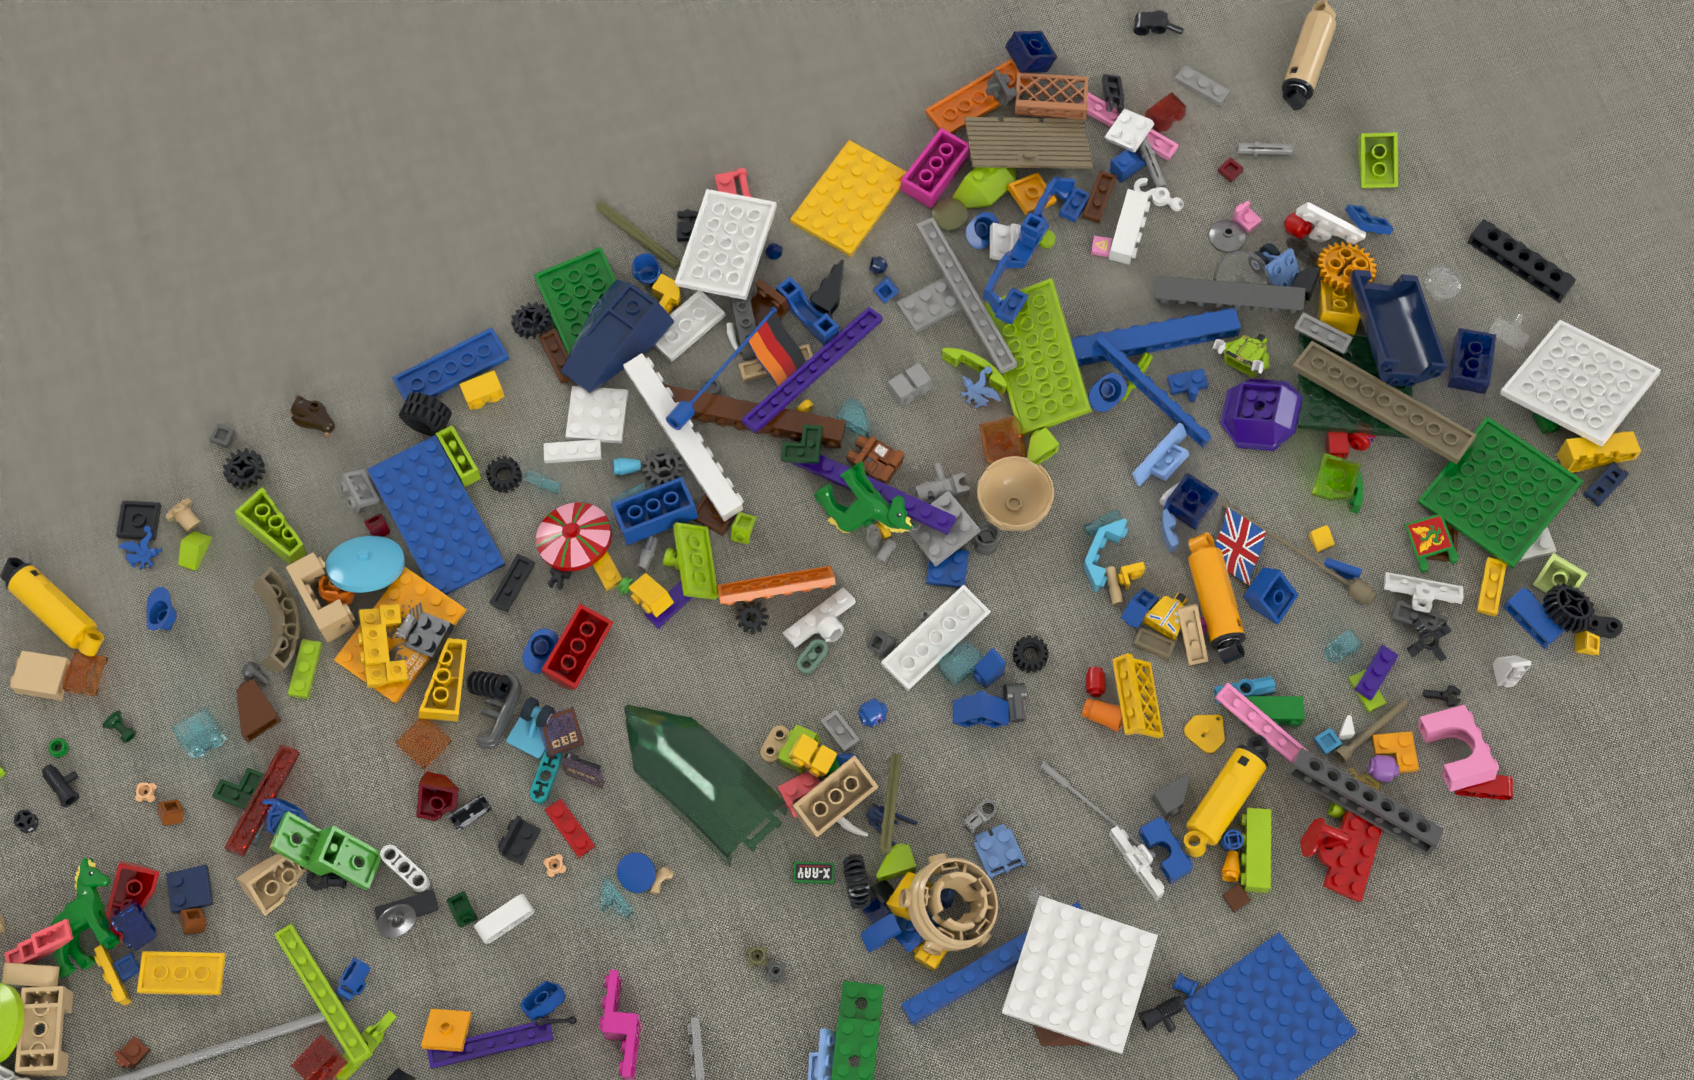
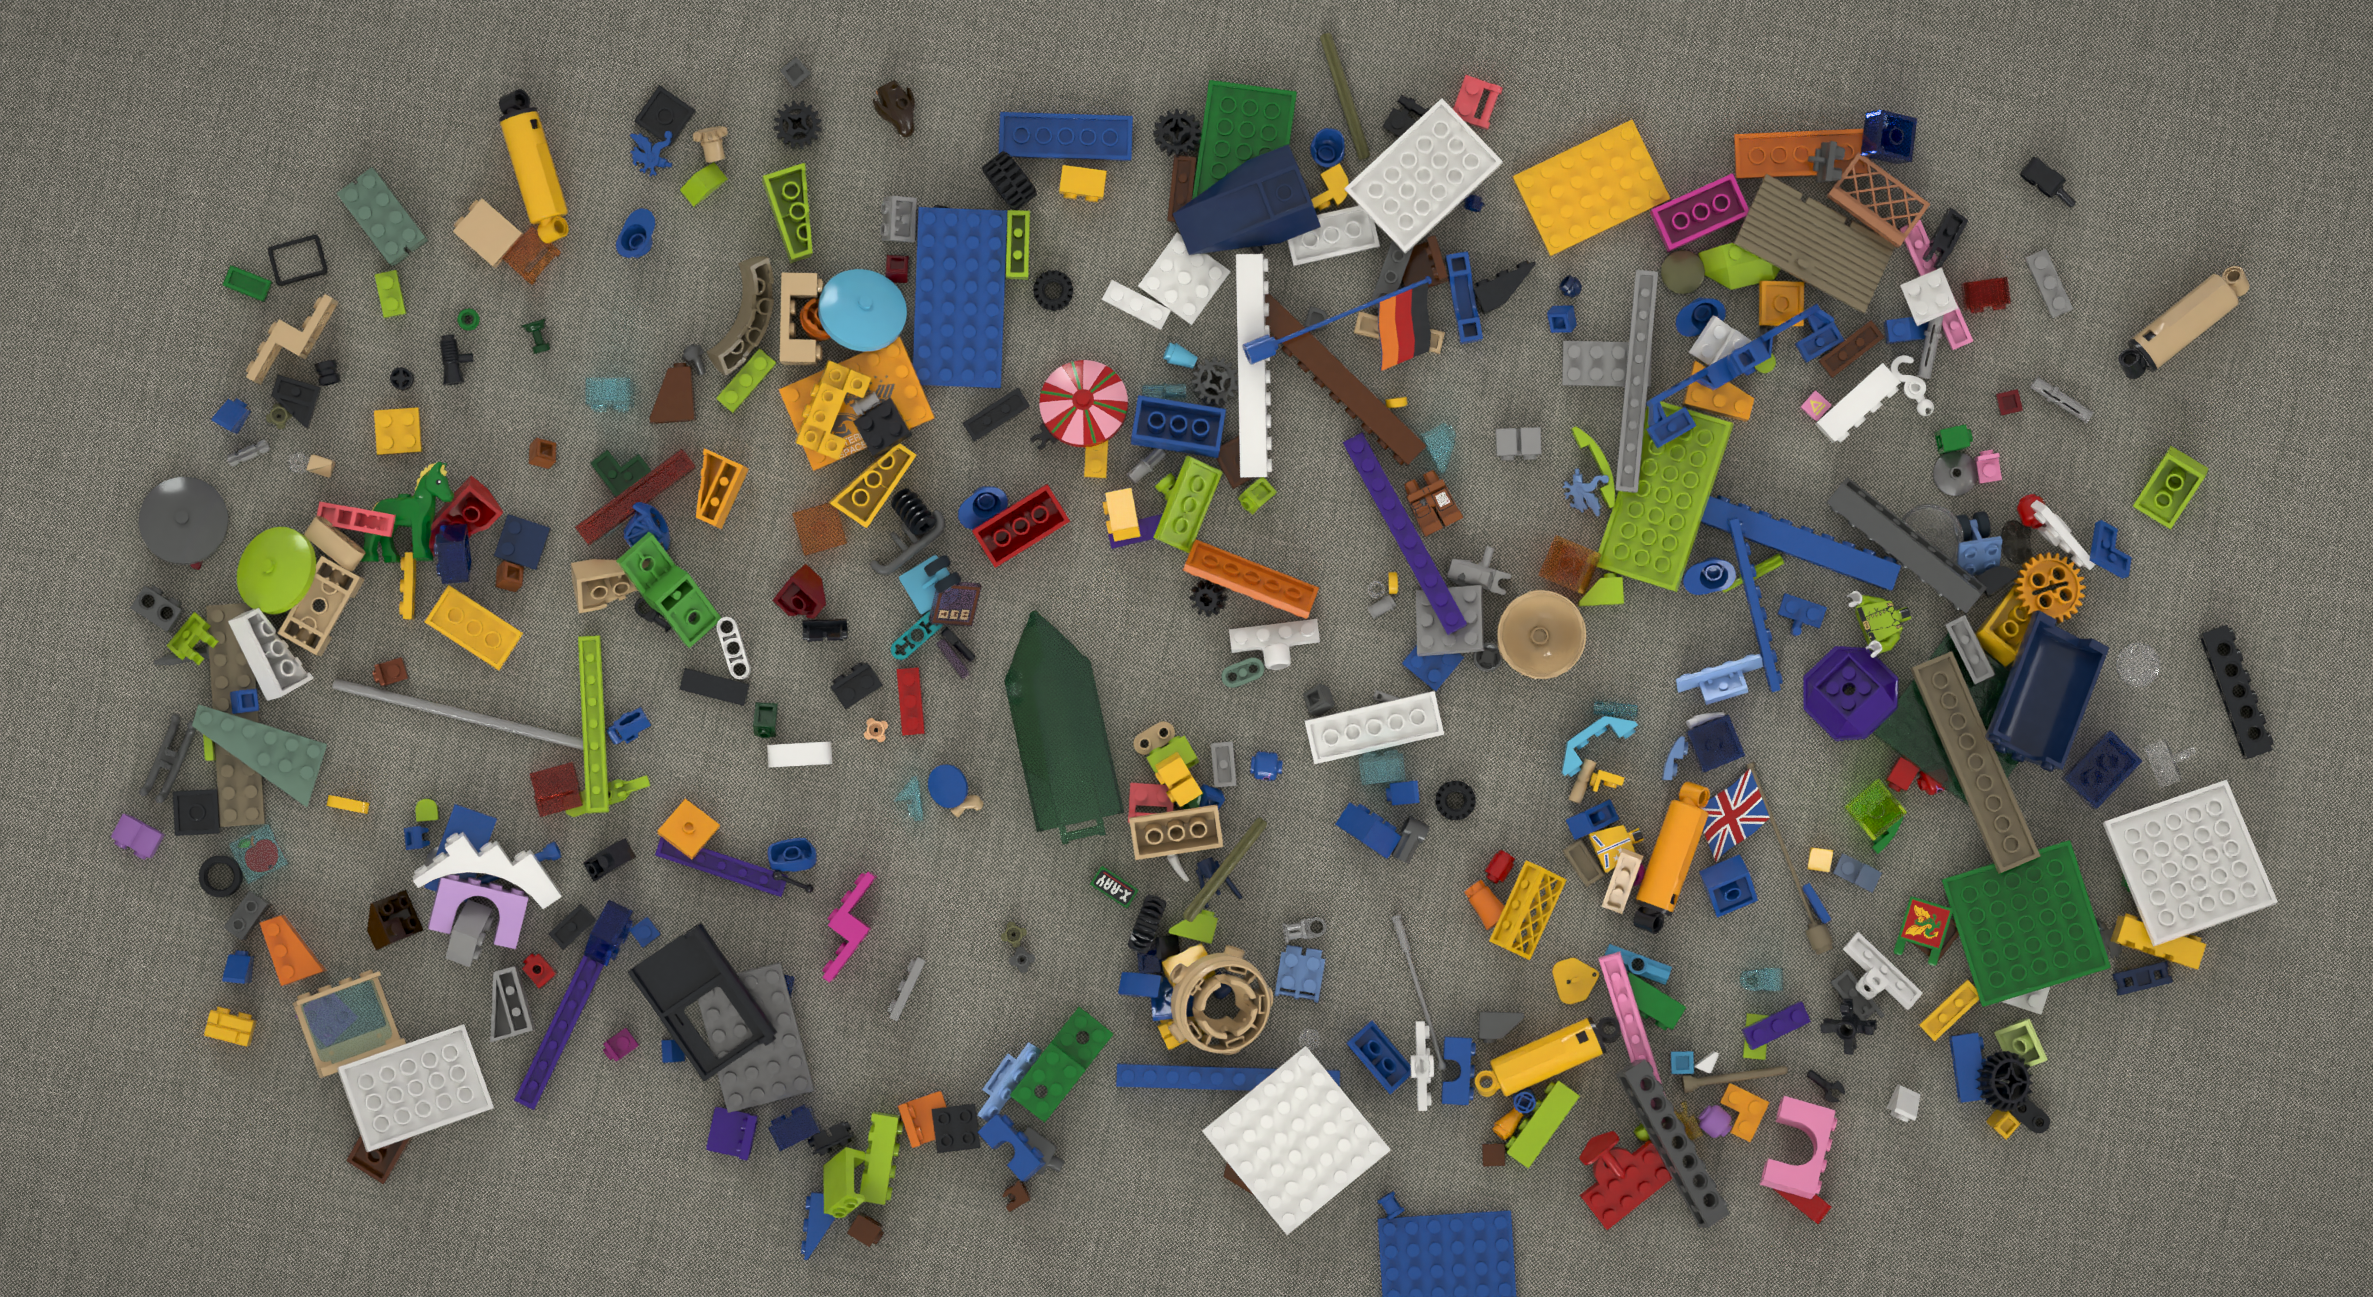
camera: 30 degrees right, 20 degrees up
(43, 863) = (397, 431): none -> yellow plate
(127, 967) = (426, 584): blue tile -> none
(141, 788) = (522, 418): light nougat plate -> none
(326, 754) = (718, 488): none -> light orange wedge
(396, 921) = (698, 697): flat silver dish -> none
(543, 481) = (1087, 321): clear light blue axle -> none
(624, 584) = (1104, 486): bright green plate -> none
(732, 335) = (1372, 274): white helmet -> none
(808, 450) = (1370, 456): dark green plate -> none
(812, 370) = (1428, 369): dark purple plate -> none
(866, 507) = (1388, 555): green animal -> none
(1034, 272) = (1724, 400): none -> light orange wedge
(1100, 877) = (1380, 1056): none -> blue slope
(1162, 1012) = (1354, 1217): black piece -> none
(1210, 209) = (1953, 439): none -> green brick
(1353, 533) = (1857, 873): none -> sand blue slope

